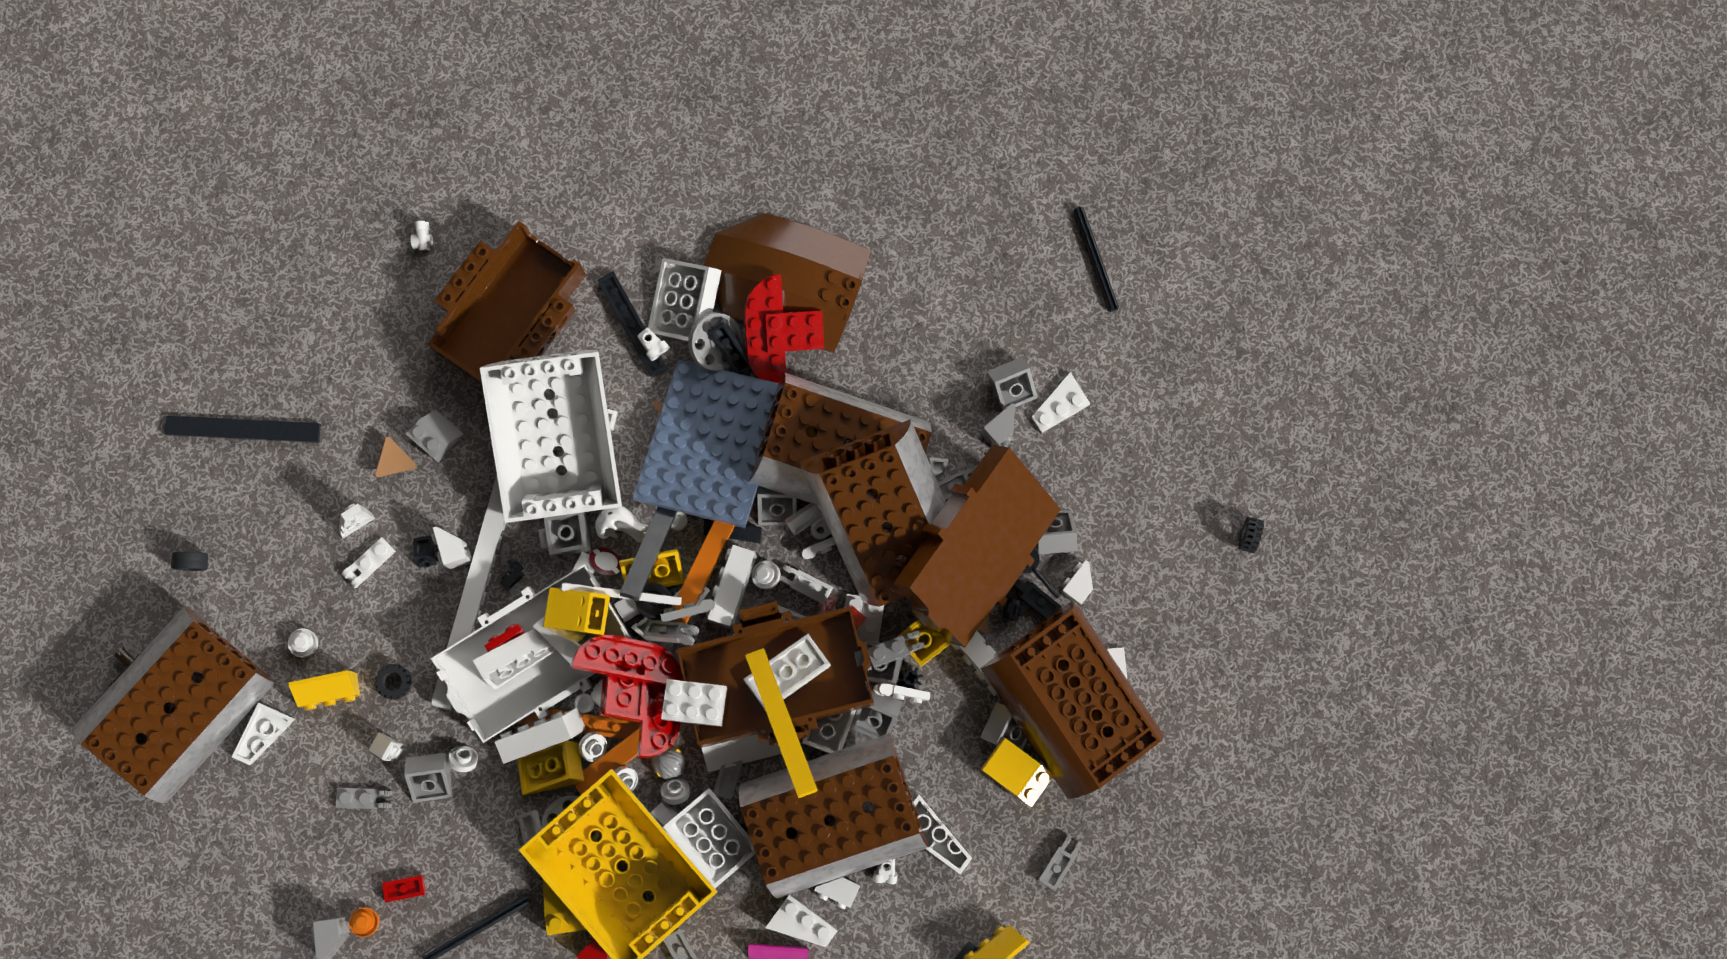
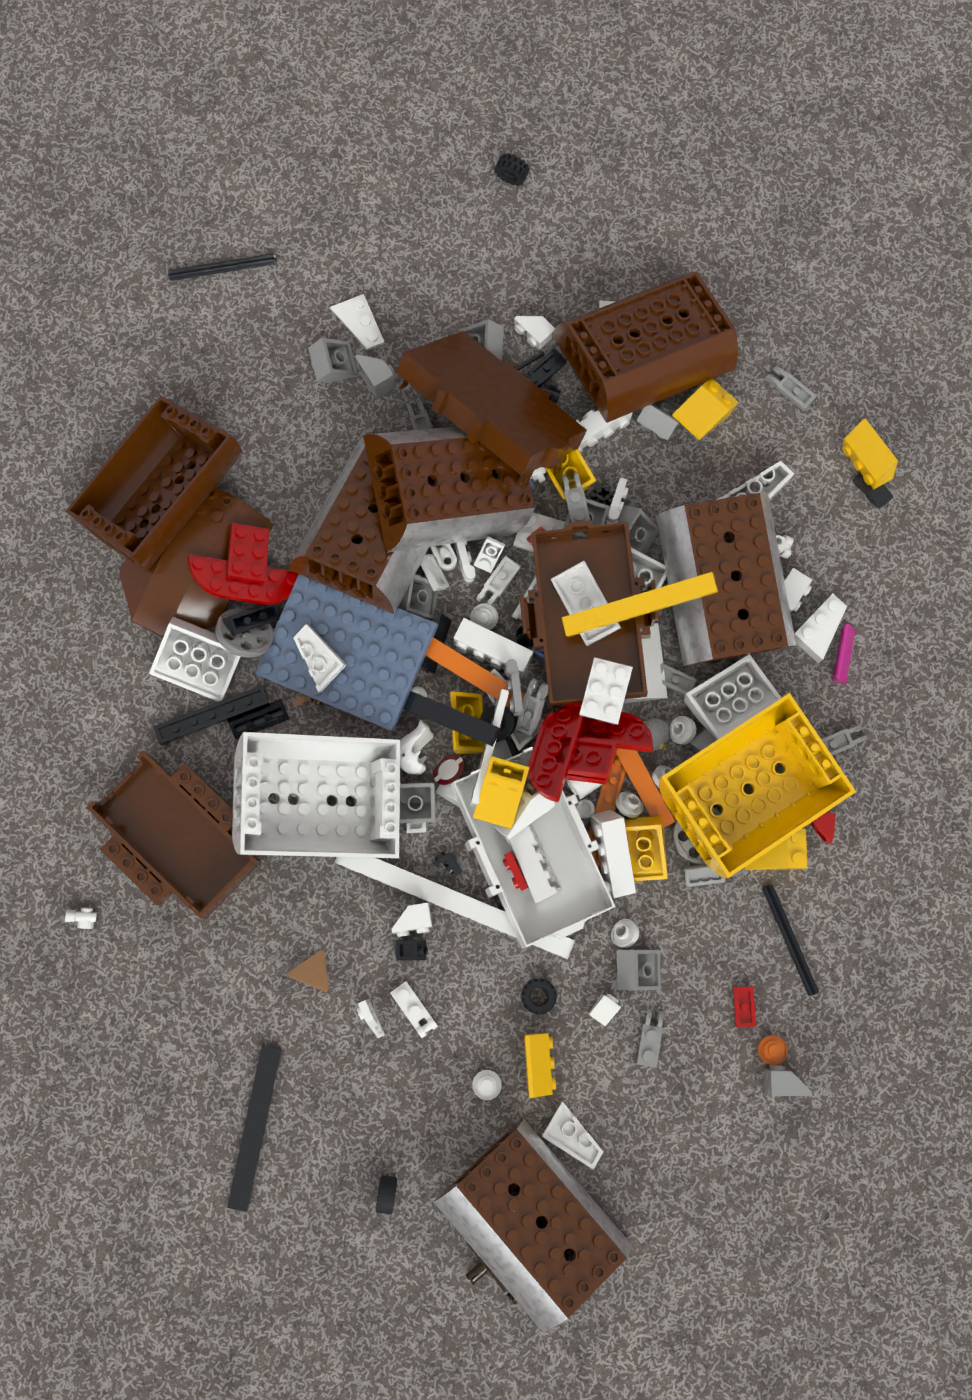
camera: 80 degrees left, 0 degrees up
(435, 434) = (293, 926): light grey slope -> none
(633, 363) = (258, 717): none -> black slope
(655, 346) = (240, 691): white plate -> none
(696, 418) = (319, 656): none -> white wing
(828, 569) = (489, 554): none -> white slope
(858, 221) = (146, 477): none -> reddish brown slope

